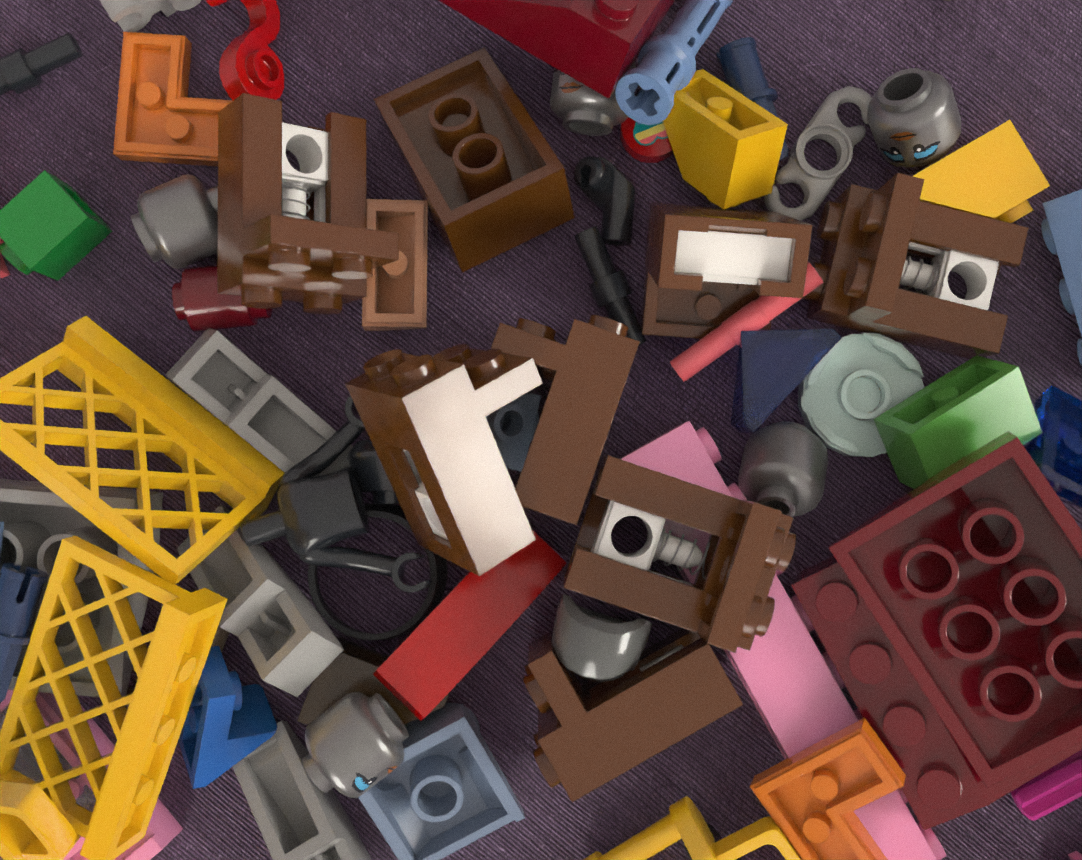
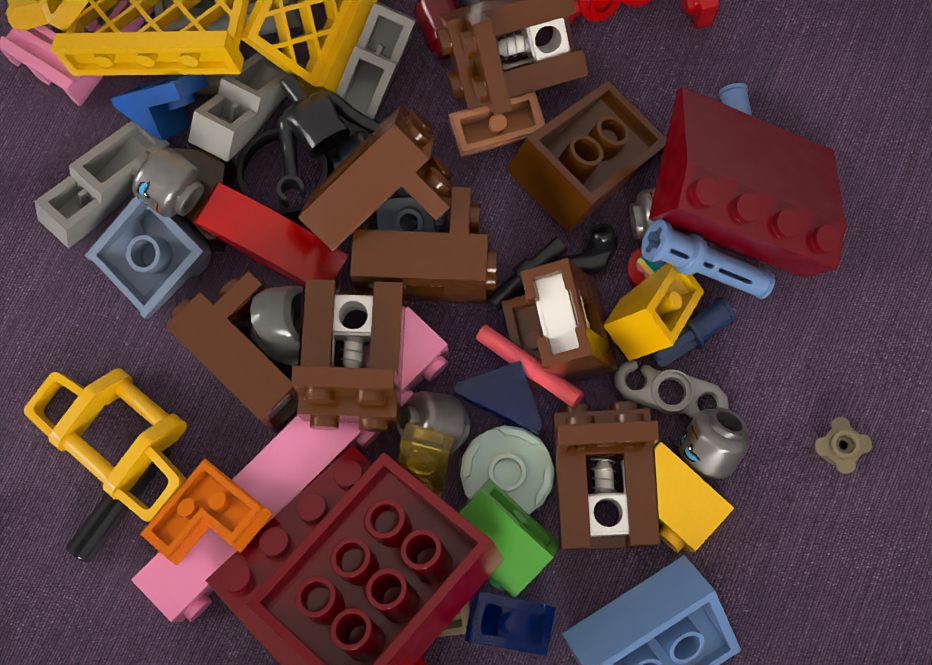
camera: 75 degrees right, 10 degrees down
(839, 496) = (426, 456): none -> clear yellow plate

